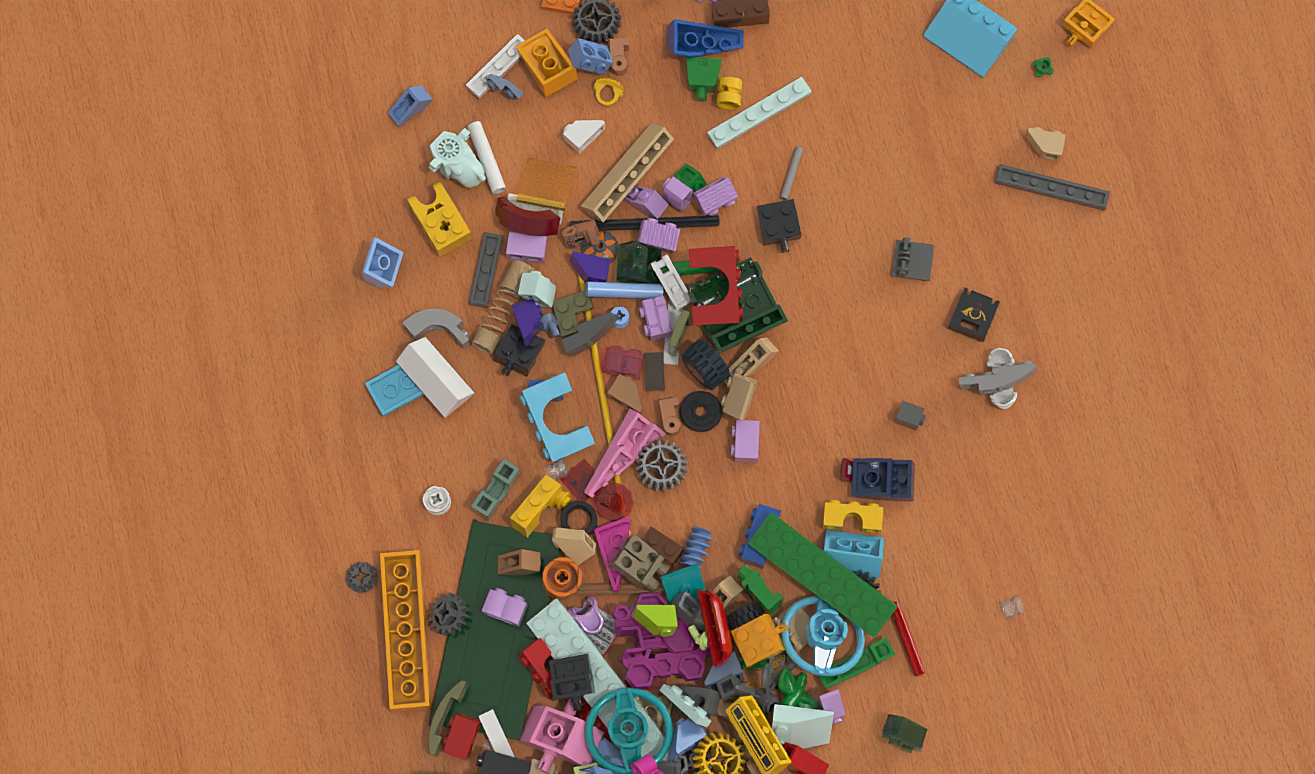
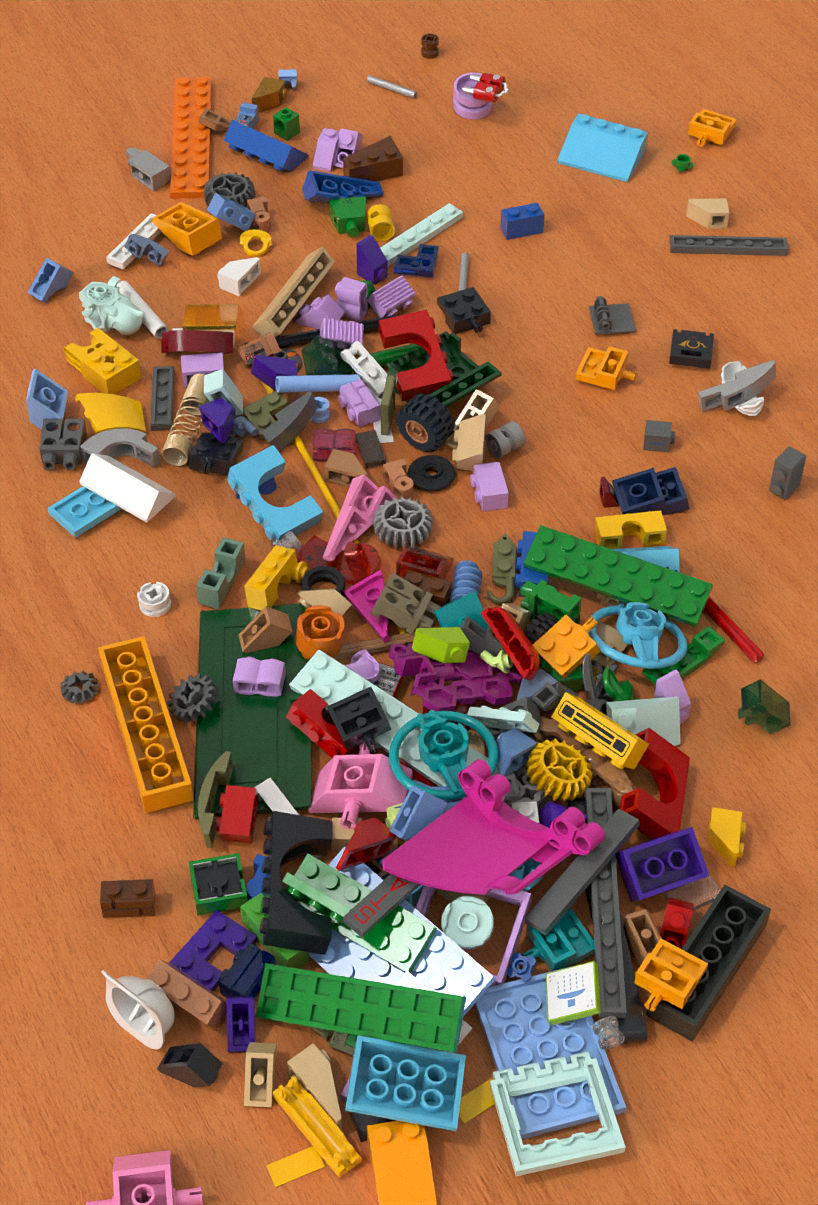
camera: 15 degrees left, 25 degrees down
(389, 310) = (62, 444): none -> dark grey hips
(438, 286) = (112, 411): none -> yellow slope
(668, 516) = (423, 562): none -> clear red slope
(707, 147) = (371, 261): none -> dark purple slope
(735, 531) = (503, 569): none -> olive plate
(756, 154) = (422, 265): none -> clear blue plate
(779, 389) = (504, 440): none -> light grey wheel
(863, 118) = (522, 221): none -> blue brick
(886, 322) = (604, 367): none -> light orange plate
(1006, 490) = (787, 472): none -> dark grey brick

